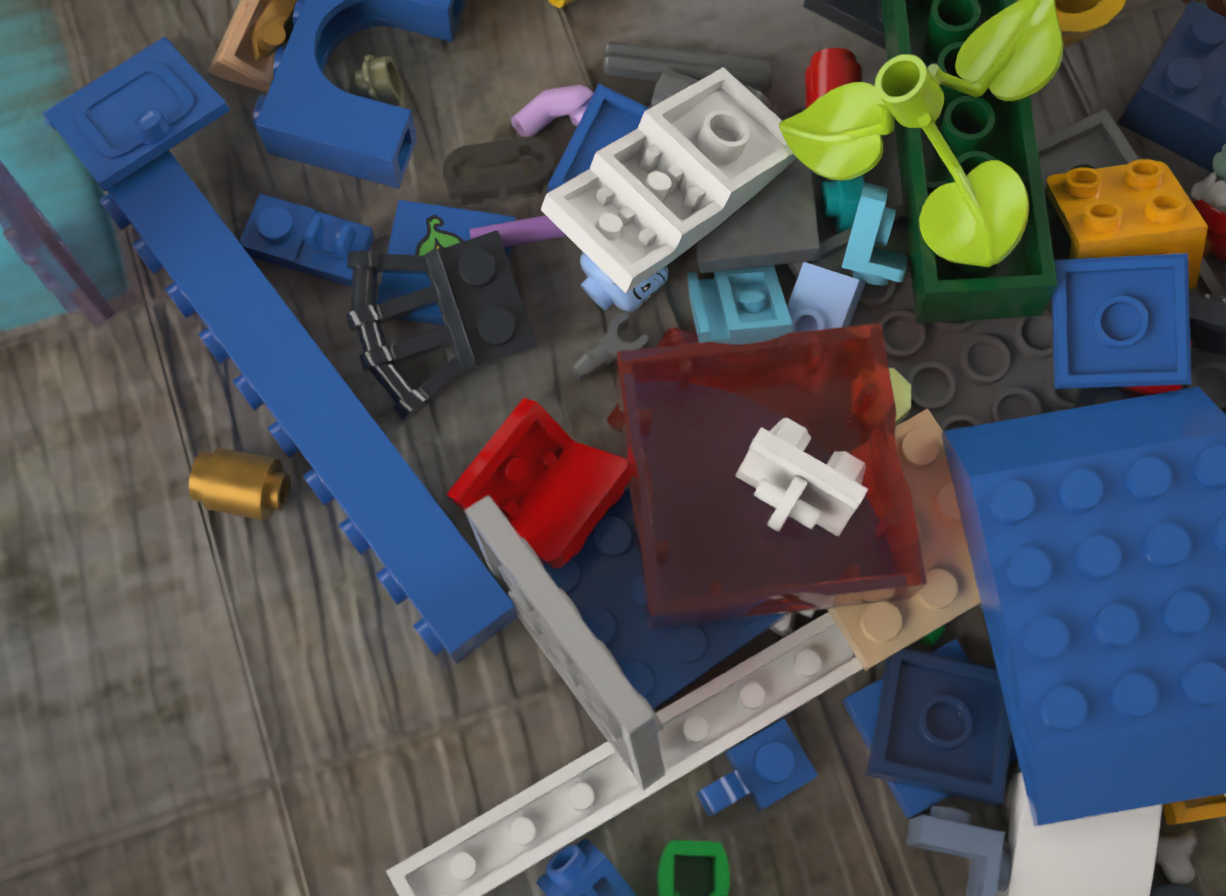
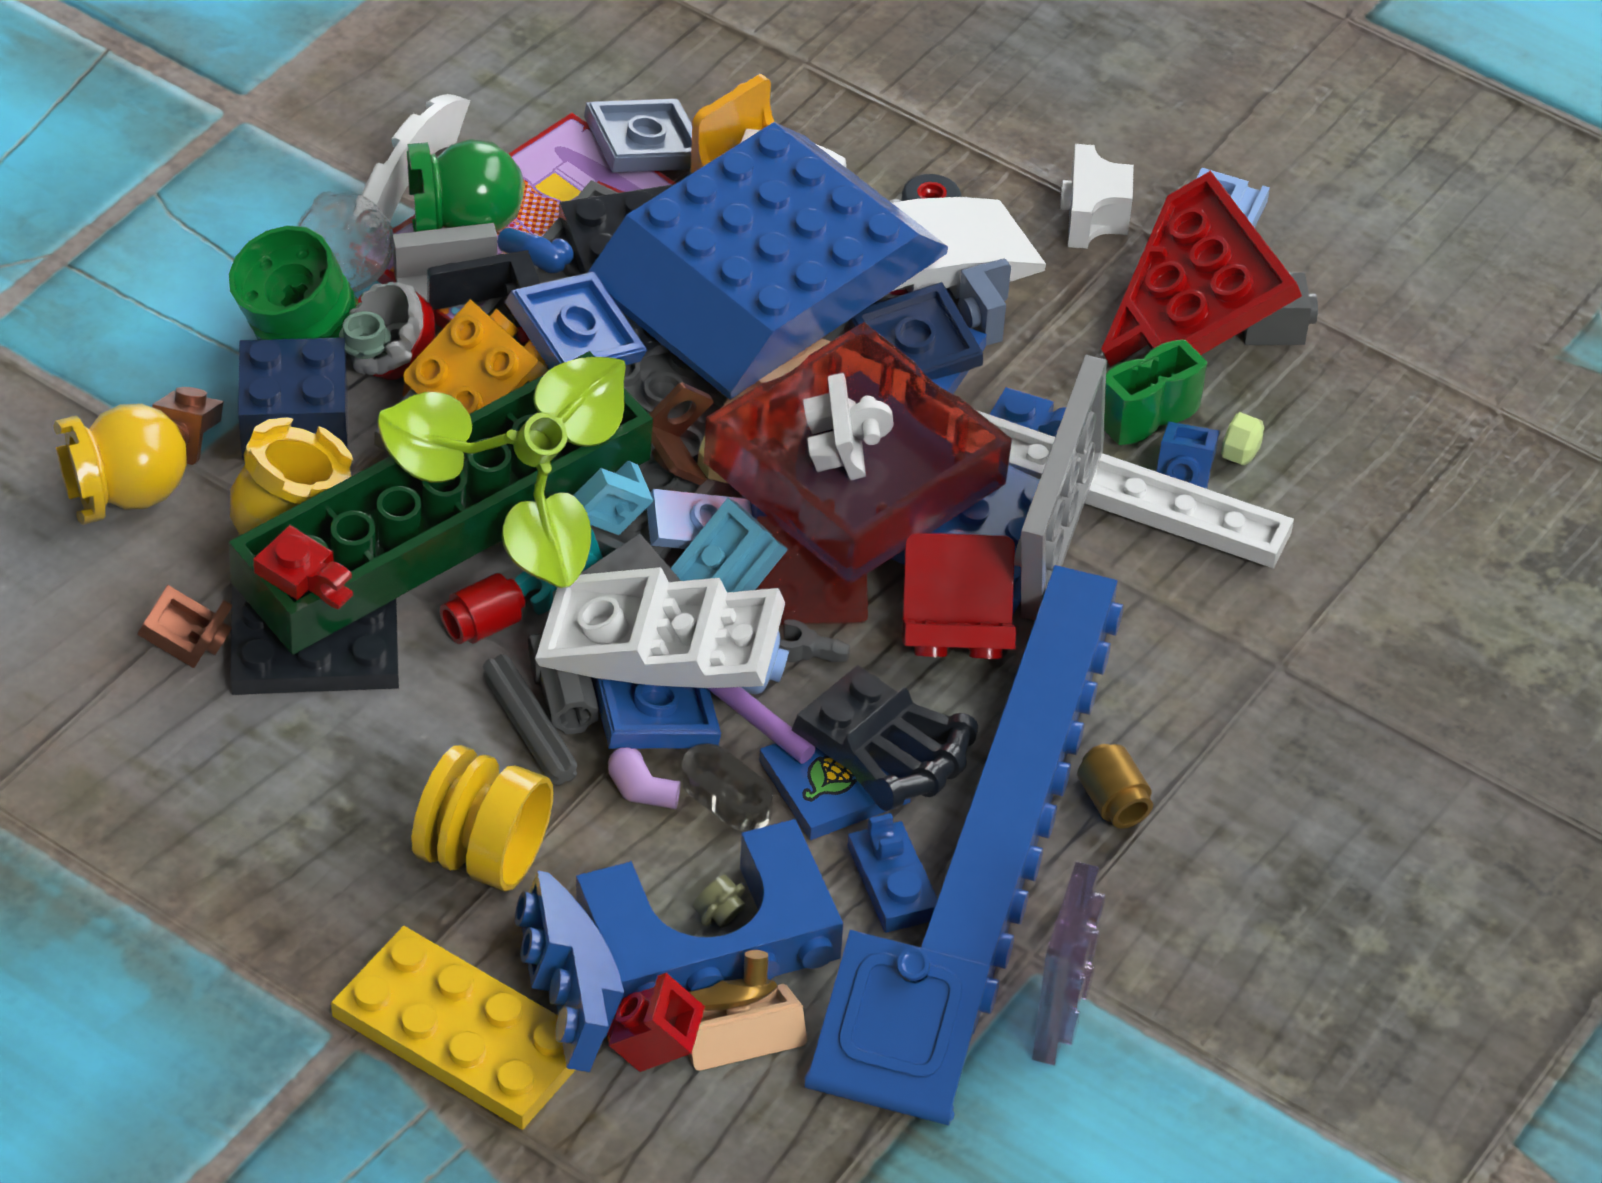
camera: 125 degrees left, 25 degrees down
(922, 348) = (666, 432): none -> copper bracket

